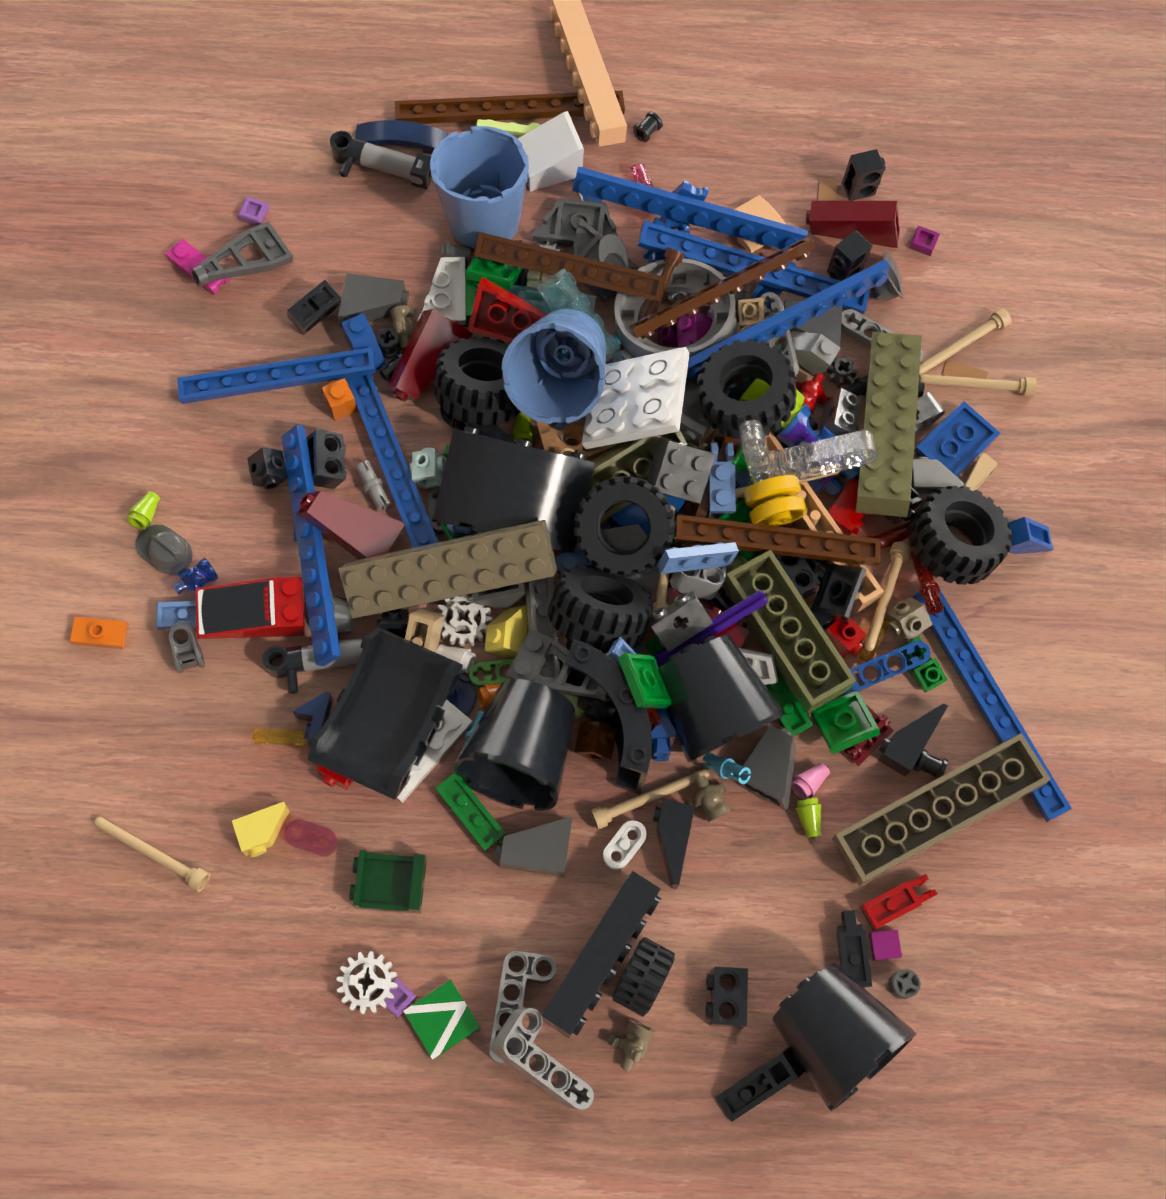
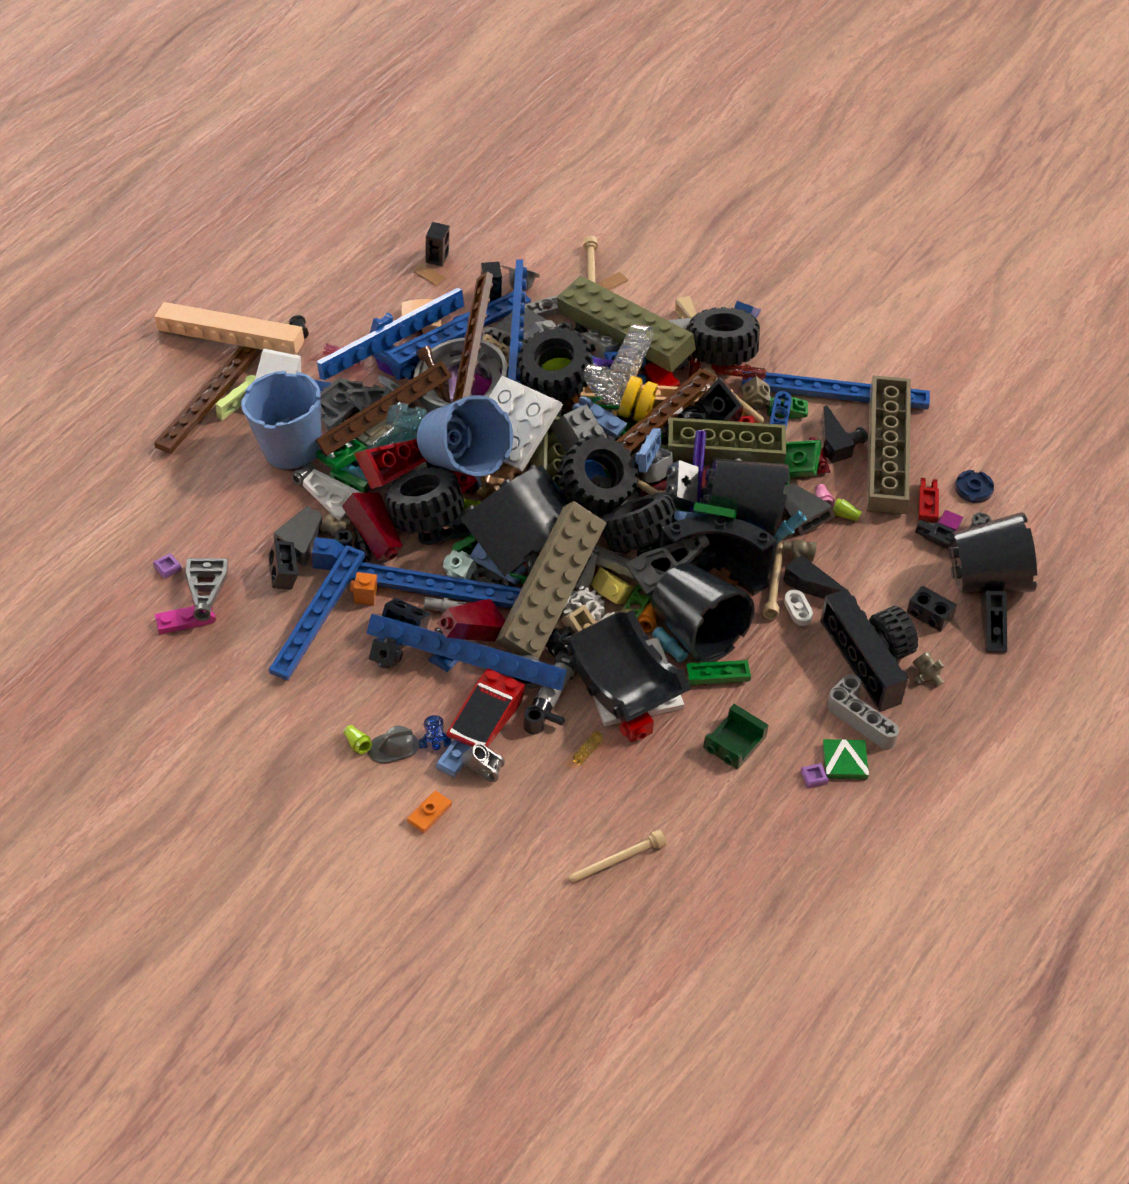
camera: 55 degrees left, 20 degrees down
(260, 829) = (648, 787): light yellow slope -> none
(310, 836) = (673, 765): clear pink plate -> none
(316, 711) = (591, 716): dark blue slope -> none
(379, 158) = (168, 486): piece -> none
(379, 983) = (792, 782): white gear -> none
(400, 134) = (181, 454): dark blue slope -> none
(537, 849) = (771, 649): dark grey slope -> none
(545, 1064) = (910, 714): light grey beam -> none
(872, 219) = (464, 265): dark red slope -> none
(924, 240) = (504, 247): magenta tile -> none
(958, 439) = (656, 300): blue plate -> none
(965, 943) = (974, 486): none -> dark blue tile
(1024, 386) = (645, 259): tan piece -> none

